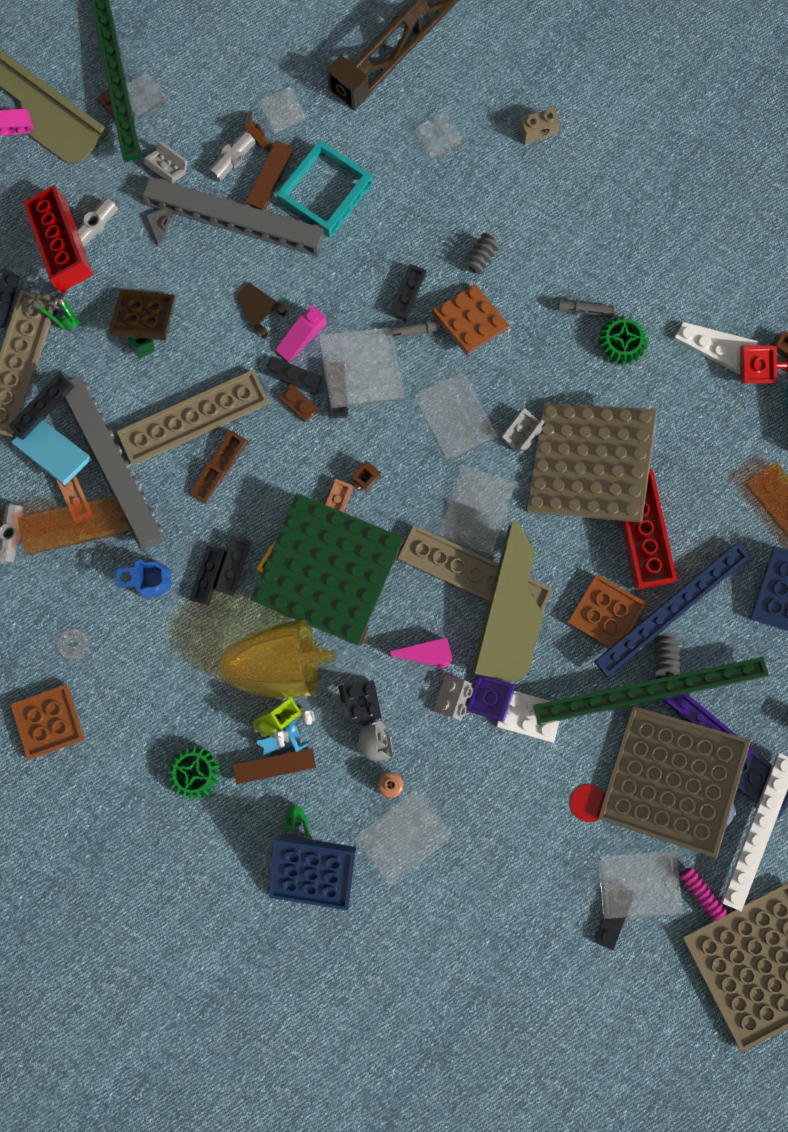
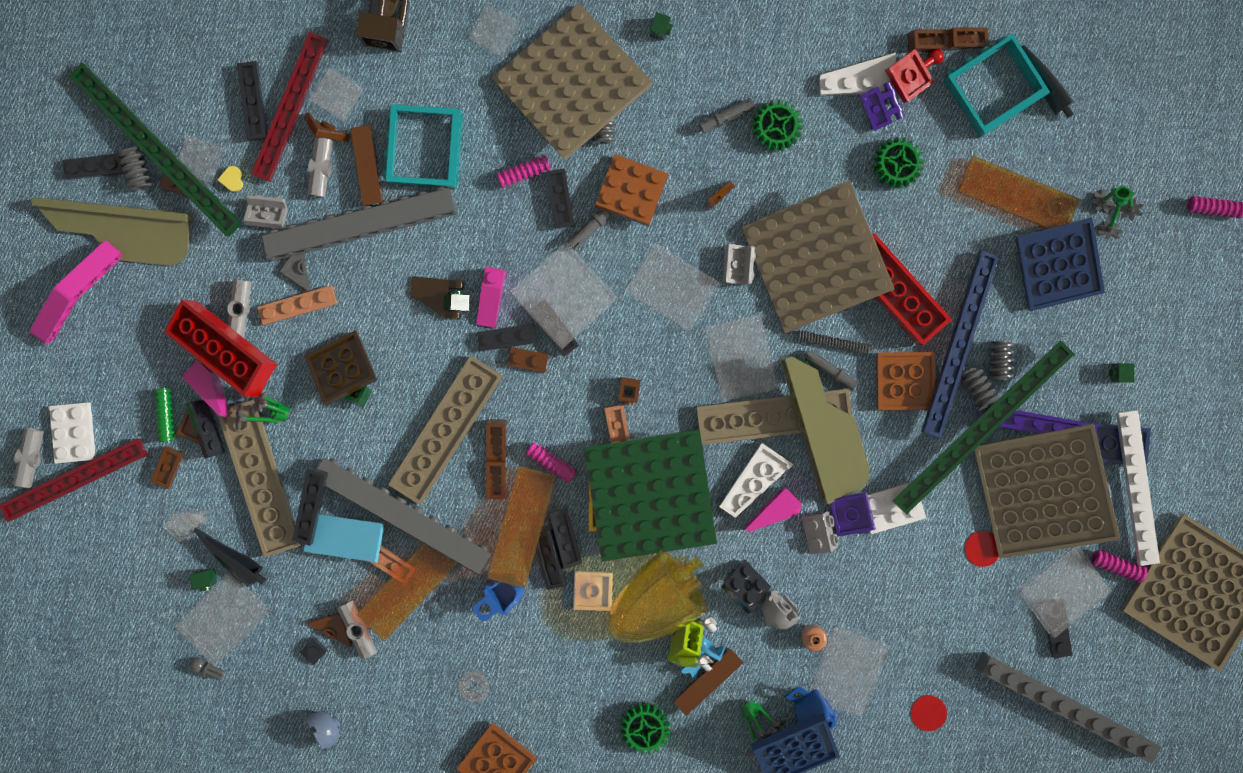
camera: 30 degrees left, 10 degrees up
(28, 265) = (208, 386): none -> dark pink slope
(58, 54) = (92, 167): none -> black plate
(87, 72) = (133, 170): none -> dark grey piece
(142, 249) = (297, 305): none -> nougat plate
(157, 125) = (232, 179): none -> light yellow tile
(202, 532) = (521, 527): none -> clear orange plate
(213, 77) = (252, 100): none -> black plate
(226, 625) = (592, 590): none -> tile
(239, 98) = (289, 107): none -> dark red plate
(262, 496) = (551, 462): none -> dark pink piece
(270, 320) = (456, 301): none -> plate
(353, 838) = (812, 704): none -> blue piece
(391, 253) = (523, 171): none -> dark pink piece
(429, 615) = (755, 478): none -> white wing
(452, 922) = (929, 713): none -> red sticker
(476, 207) = (572, 81): none -> dark tan plate
(537, 366) = (717, 197): none -> reddish brown tile
(551, 572) = (831, 370): none -> dark grey pin
(564, 544) = (836, 339): none -> dark grey piece
(574, 208) = (661, 26): none -> dark green plate
(582, 997) = (1068, 707): none -> dark grey brick
(695, 416) = (902, 147): none -> green gear
(699, 645) = (1001, 360): none -> dark grey piece
(715, 372) = (876, 109): none -> dark purple plate

